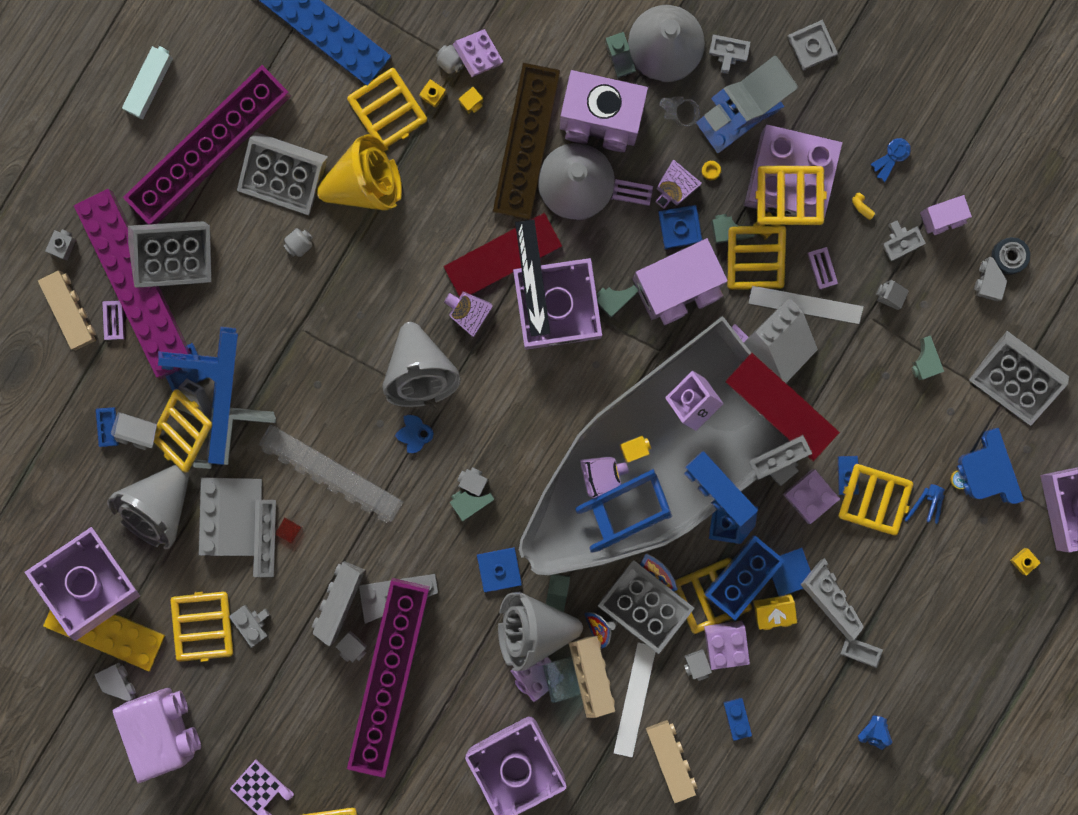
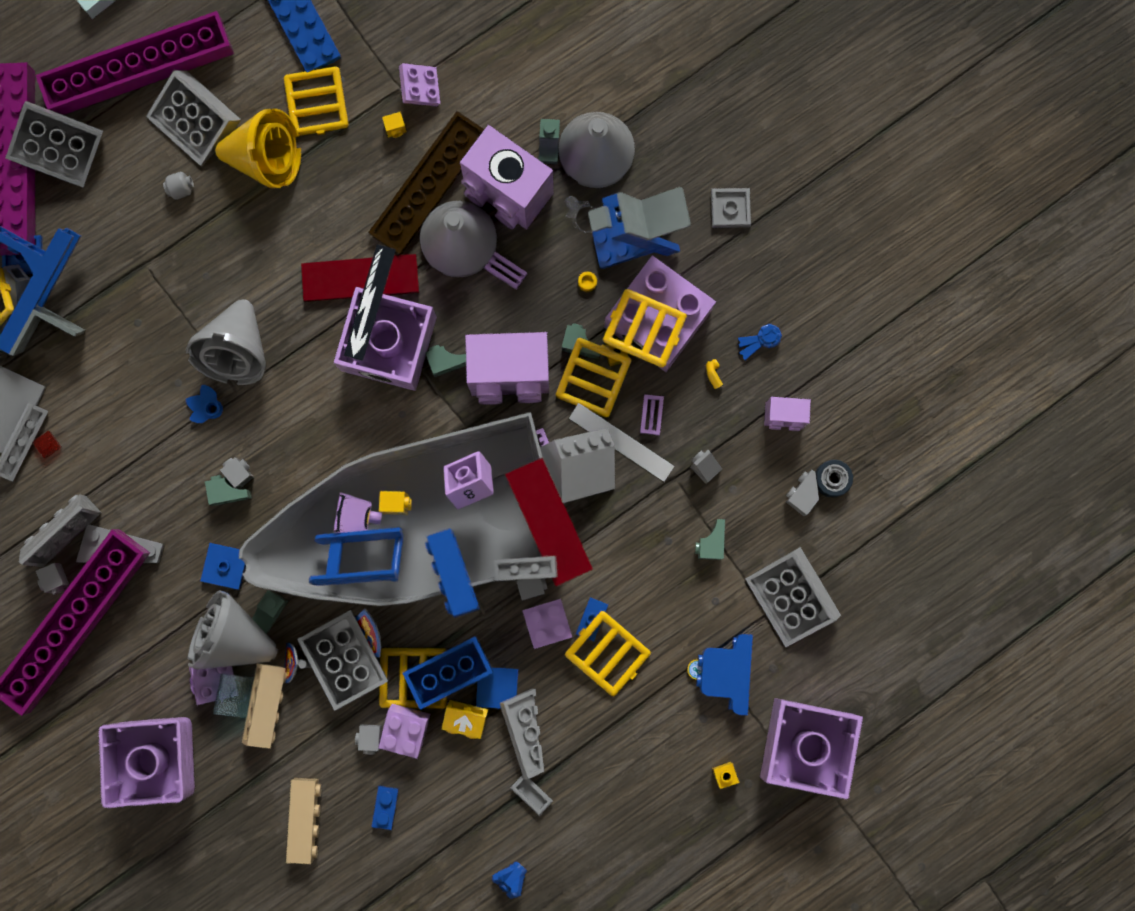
camera: 20 degrees right, 5 degrees down
(330, 472) = (110, 408): clear brick -> none
(435, 99) = (362, 109): yellow plate -> none
(449, 59) = (390, 80): light grey head -> none
(468, 311) = (303, 313): lavender torso -> none
(634, 700) = (295, 748): white sticker -> none
(676, 185) = (548, 280): lavender torso -> none
(680, 227) = (536, 317): blue tile -> none
(723, 531) = (464, 624): blue slope -> none
(728, 51) = (650, 179): light grey hinge -> none
(902, 241) = (737, 421): light grey hinge -> none
(935, 495) = (665, 673): blue plant -> none

